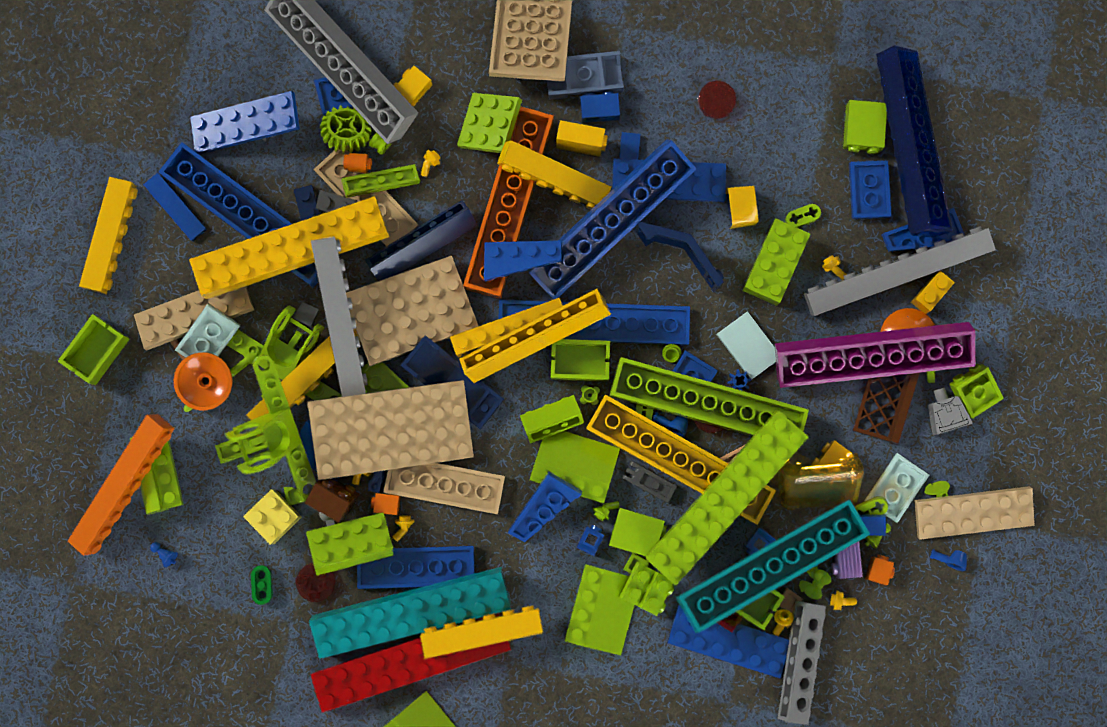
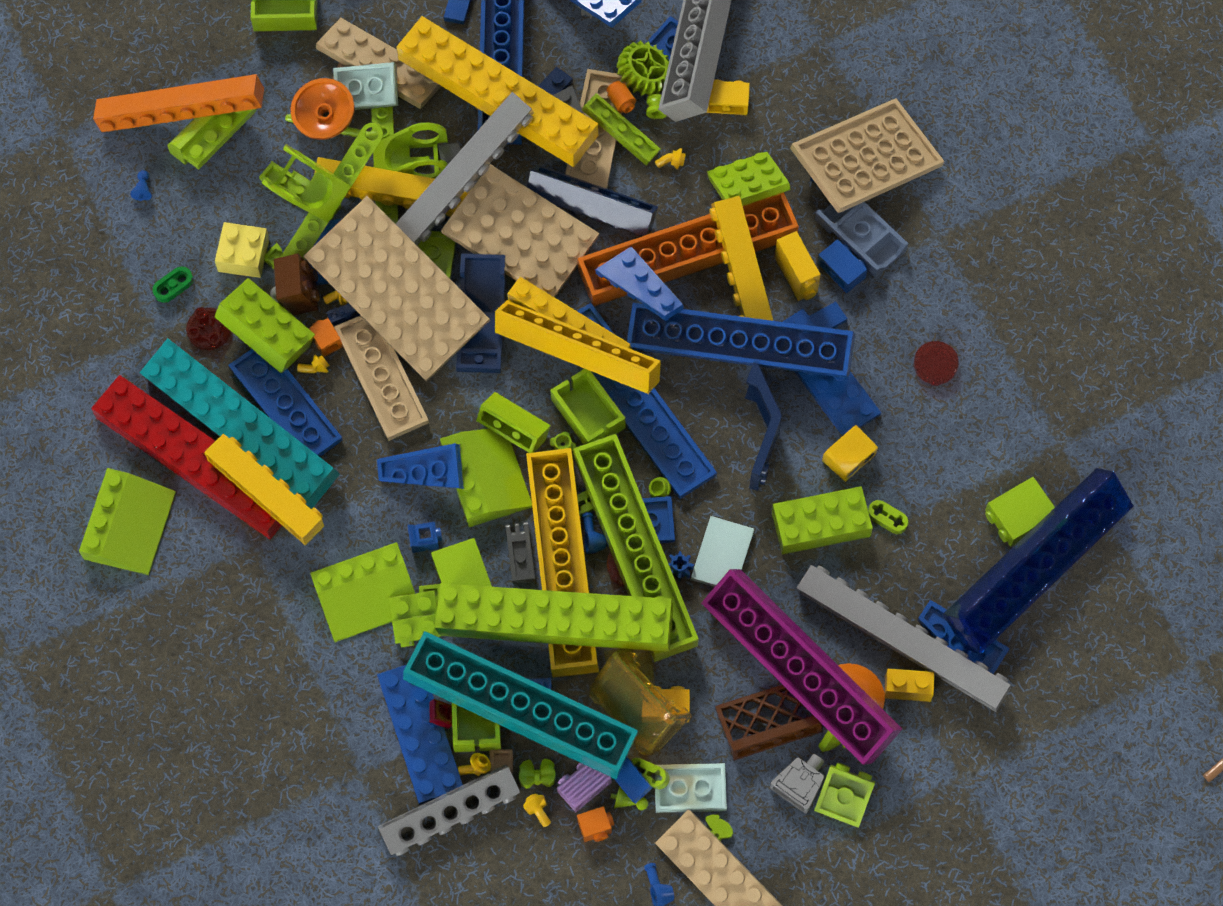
camera: 55 degrees right, 15 degrees down
(602, 512) = (458, 529): lime plate -> none
(831, 264) = (860, 573): yellow plate -> none
(870, 189) = (963, 559): blue plate -> none

